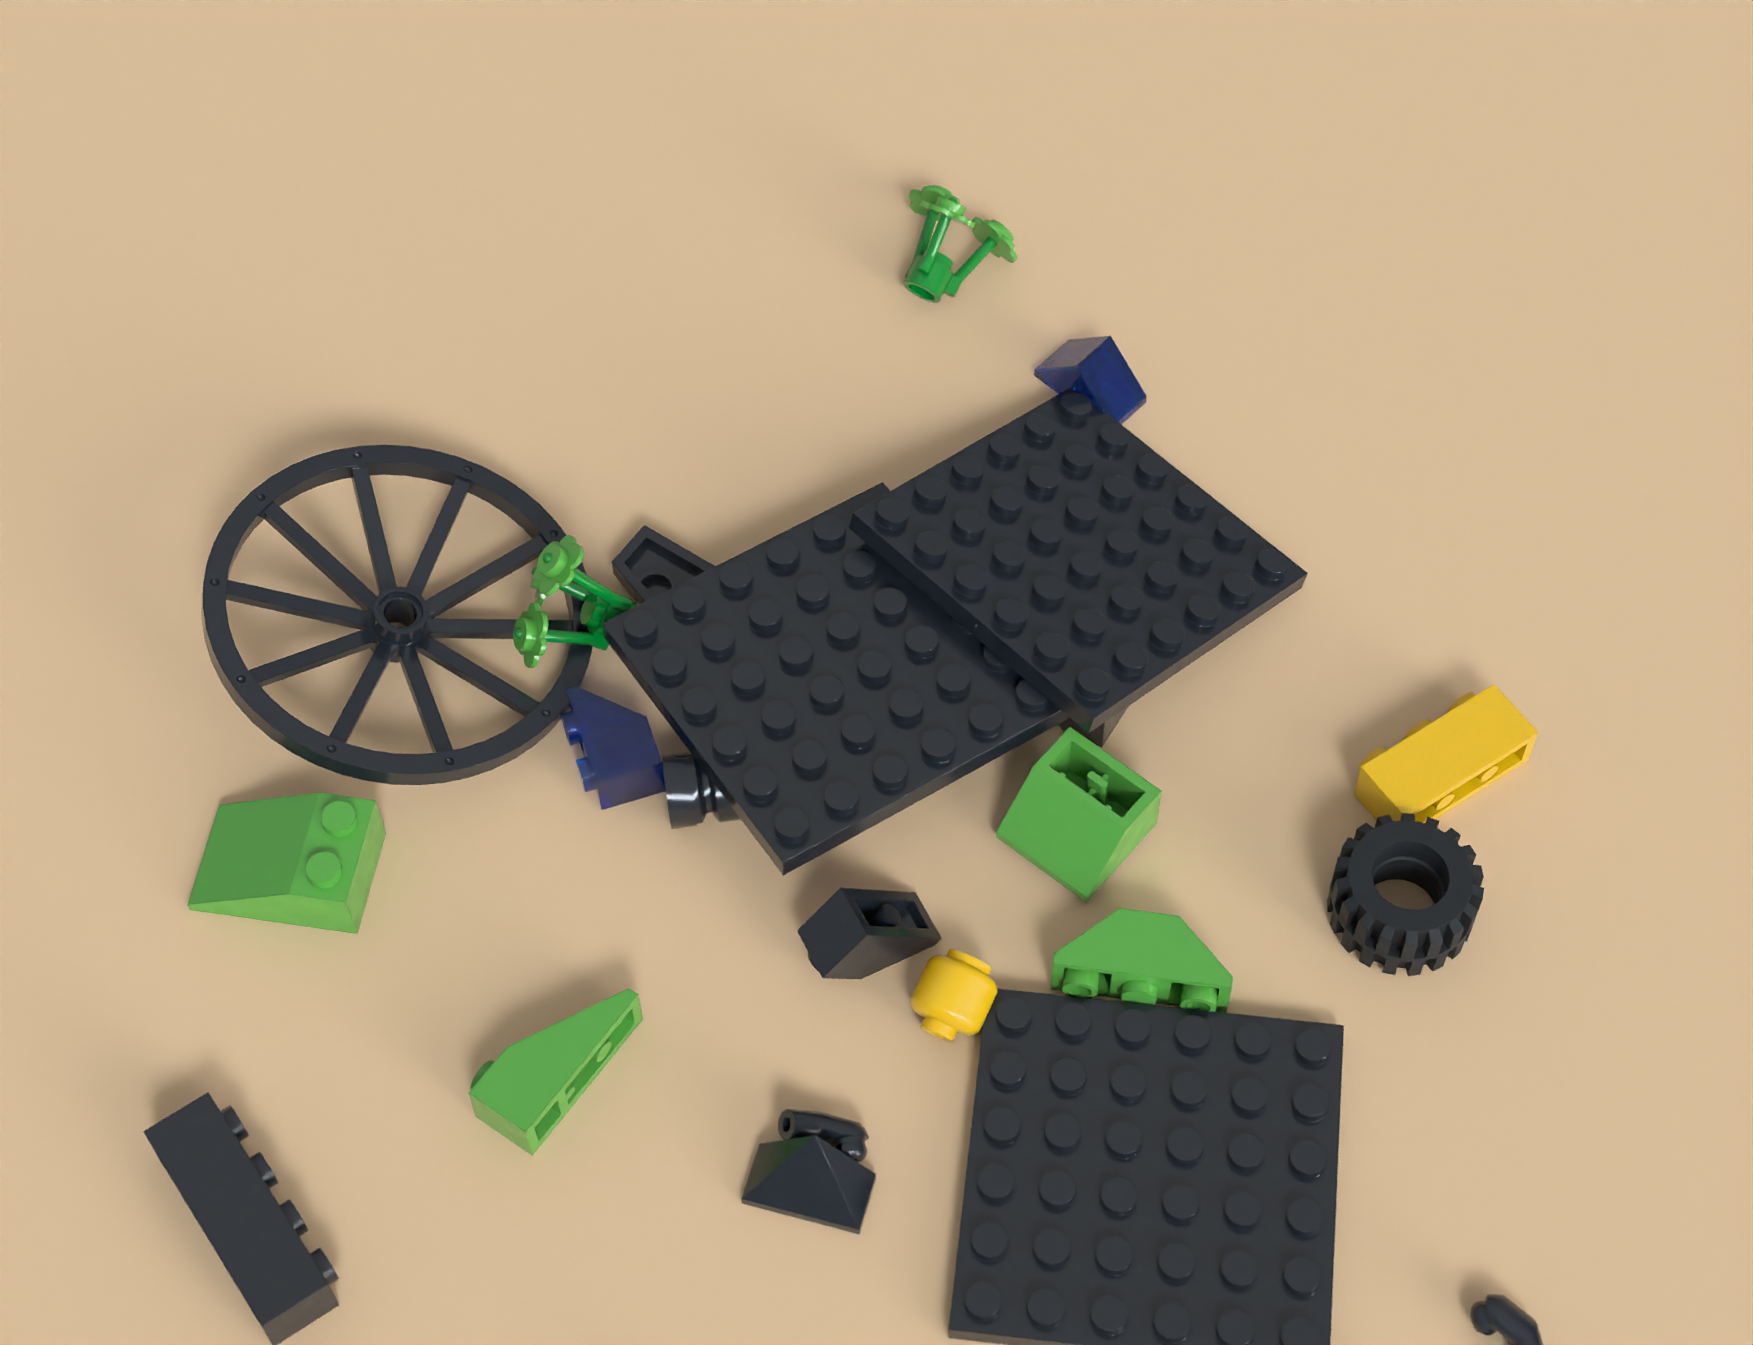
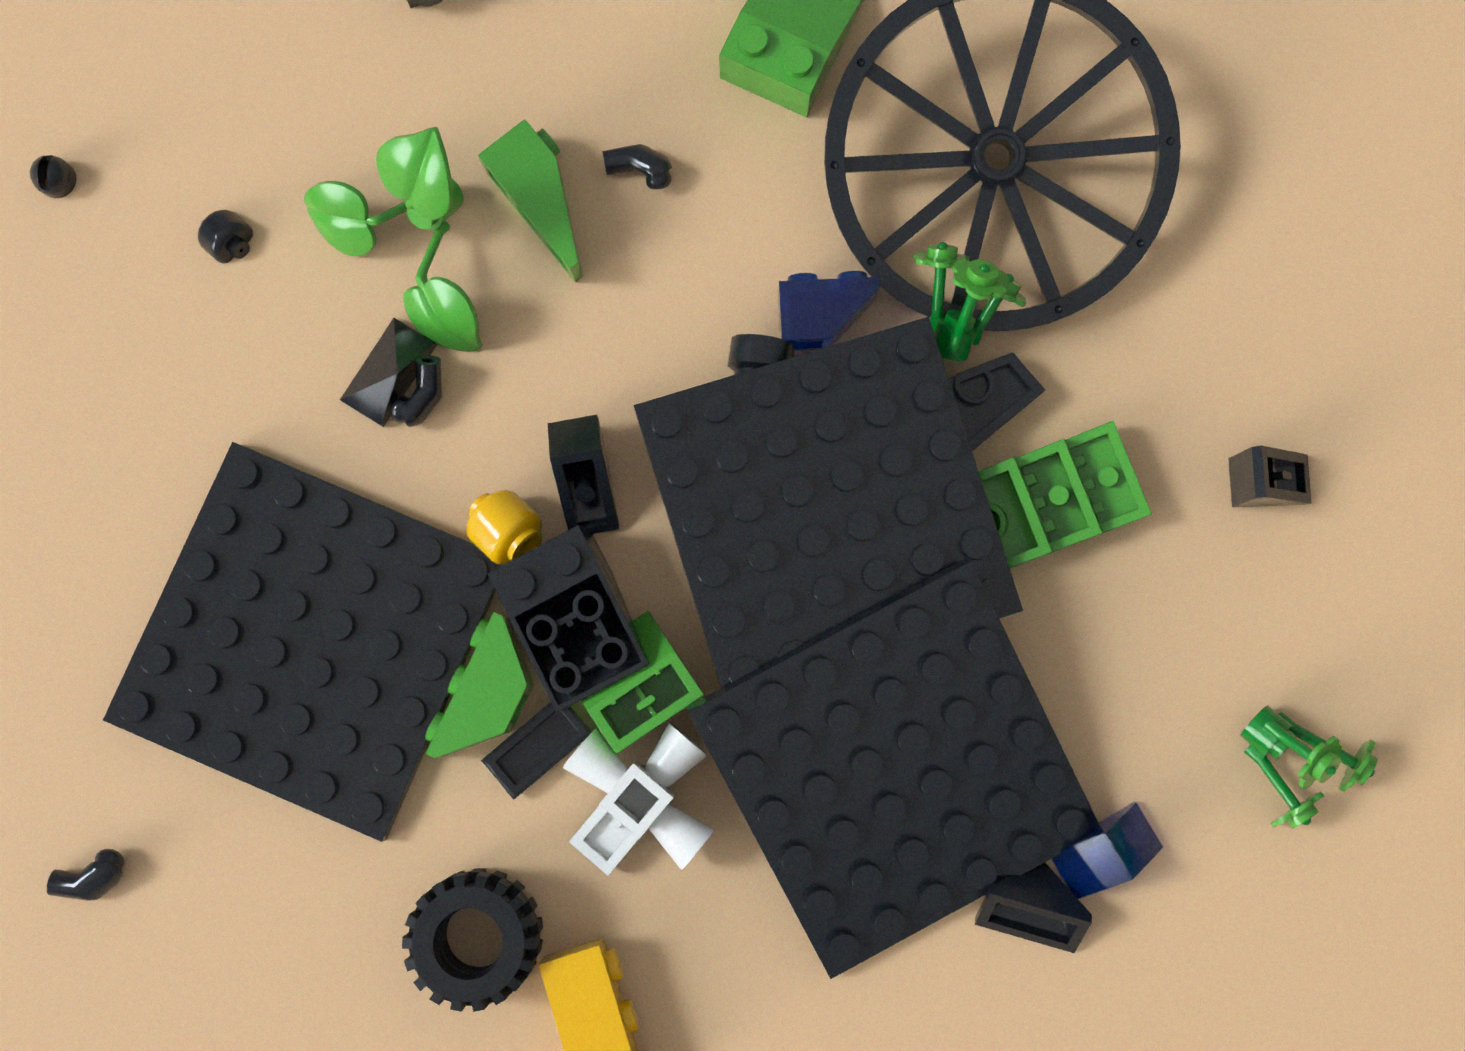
camera: 105 degrees right, 25 degrees up
(478, 979) = (641, 159): none -> black arm
(585, 1122) = (419, 173): none -> bright green plant
(680, 332) = (1269, 478): none -> black slope
(743, 483) = (1063, 494): none -> bright green slope
(1030, 888) = (570, 617): none -> black slope
(1166, 890) = (535, 748): none -> black tile
(1170, 421) = (1036, 909): none -> black slope
(1202, 782) = (637, 800): none -> white brick

